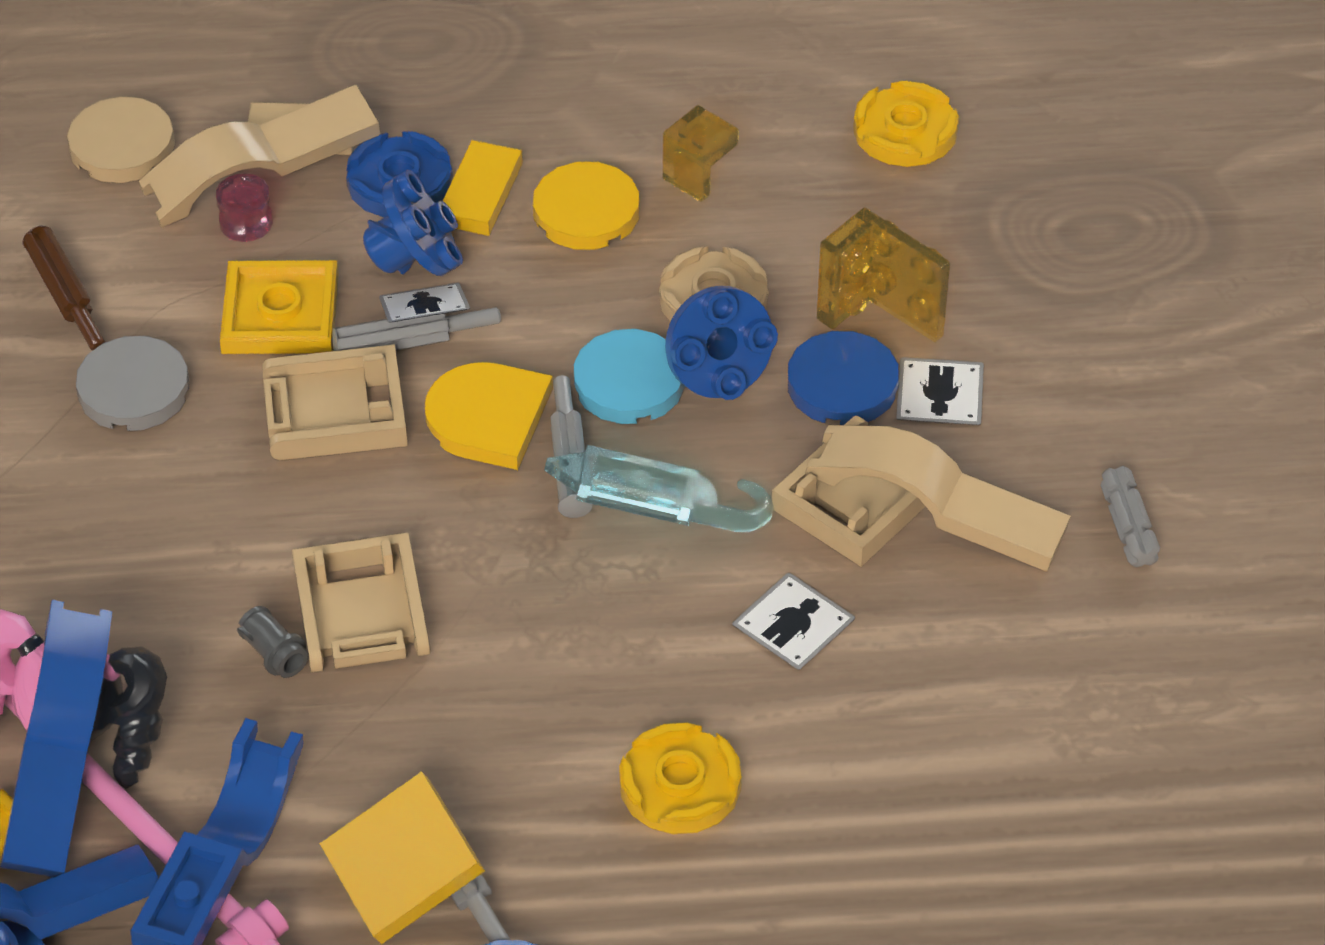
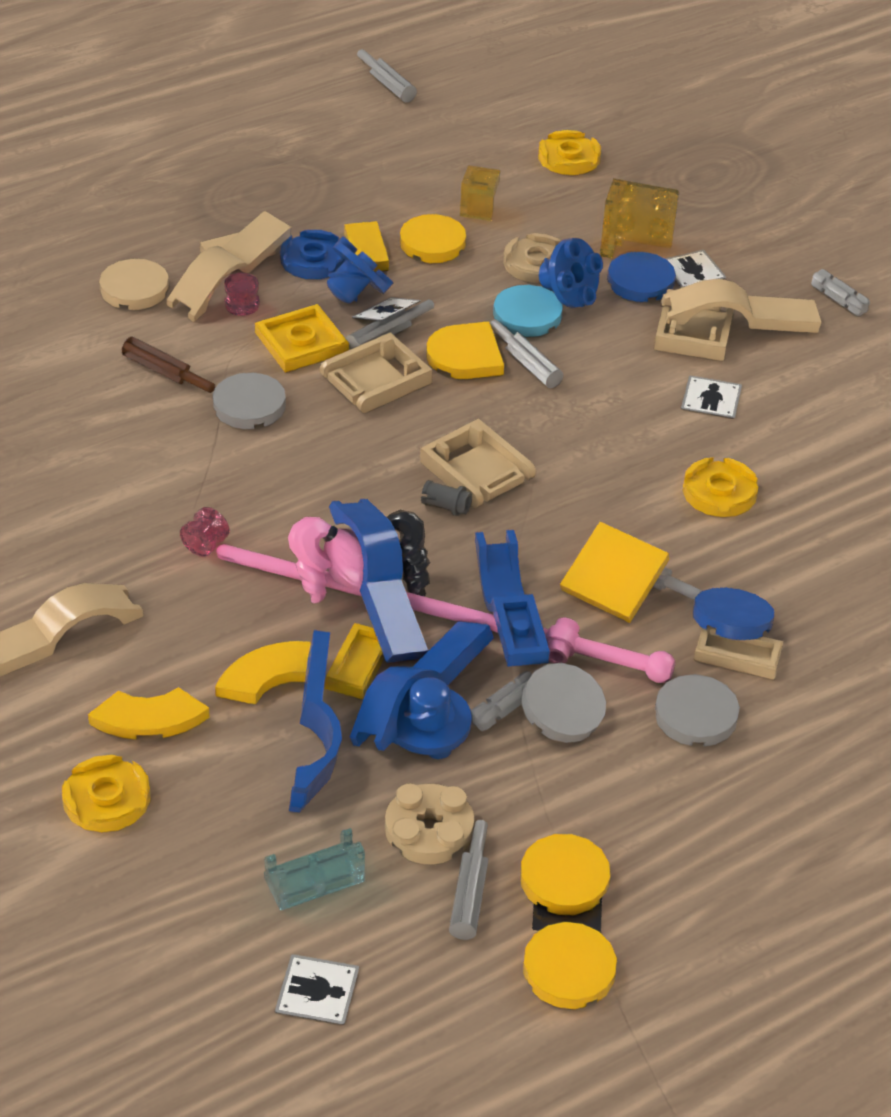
camera: 30 degrees left, 5 degrees down
(655, 489) = (594, 355): clear light blue plate -> none

